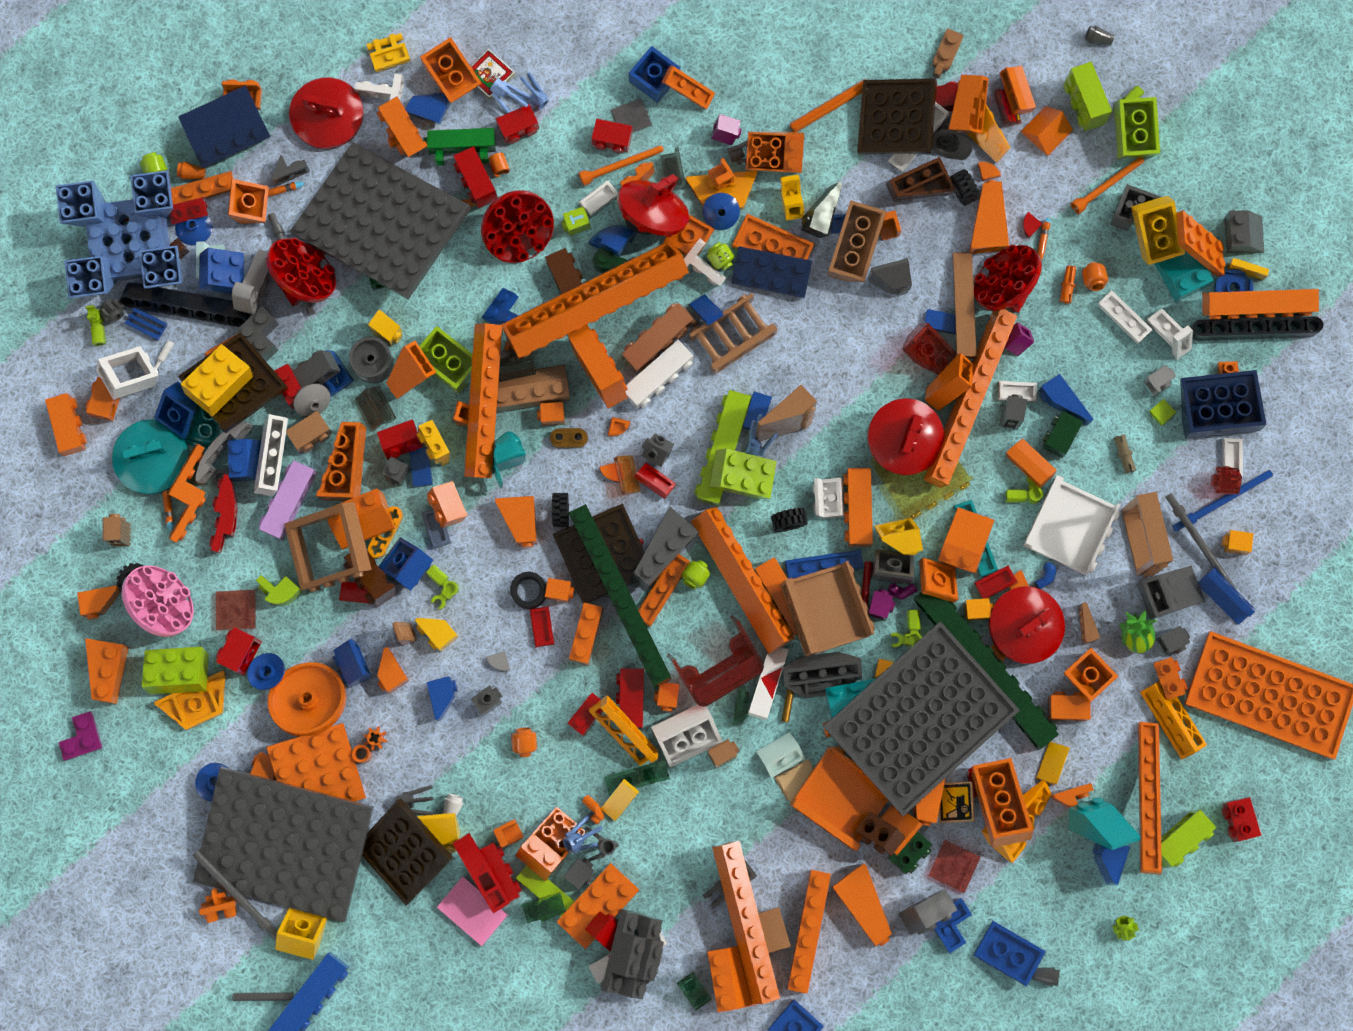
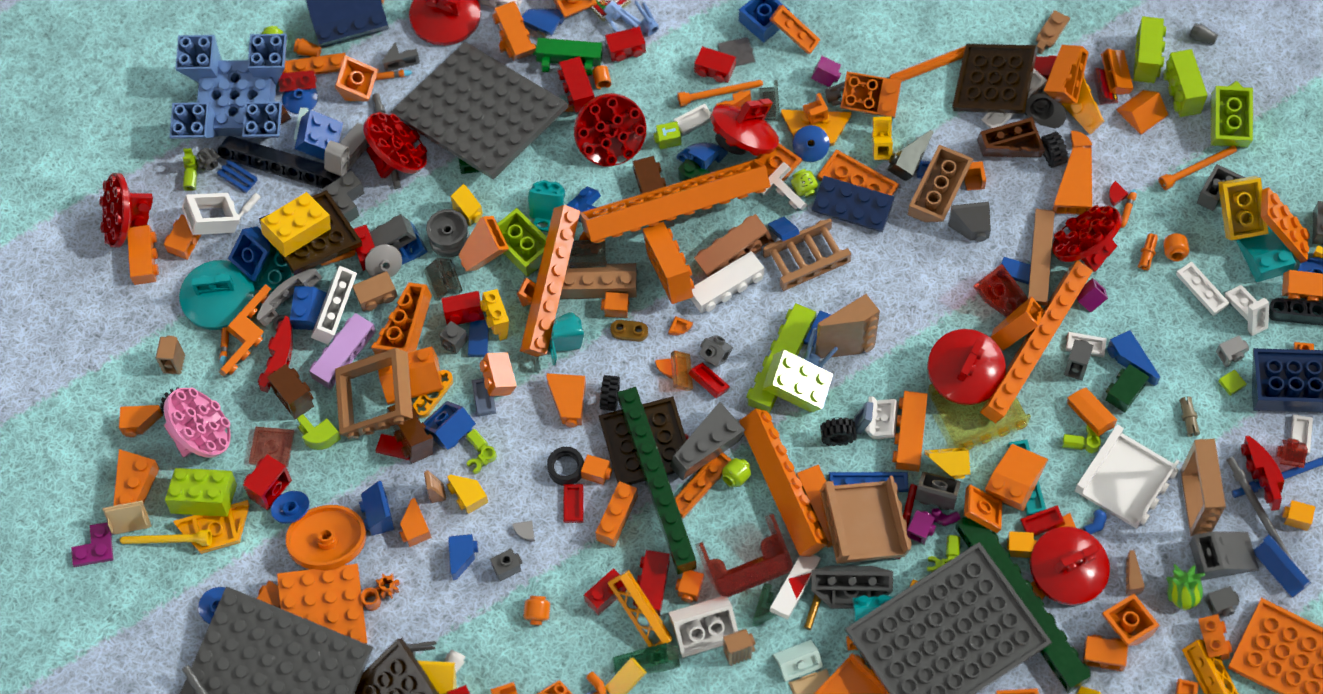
camera: 10 degrees right, 15 degrees down
(36, 382) = (122, 209): none -> red bracket
(107, 707) = (127, 517): none -> tan piece
(187, 717) = (203, 538): none -> yellow piece
(244, 553) = (291, 391): none -> reddish brown brick
(463, 312) = (543, 199): none -> teal piece
(812, 502) = (863, 417): none -> sand blue tile
(1047, 63) = (1149, 49): none -> lime brick
(1201, 499) = (1265, 469): none -> red slope

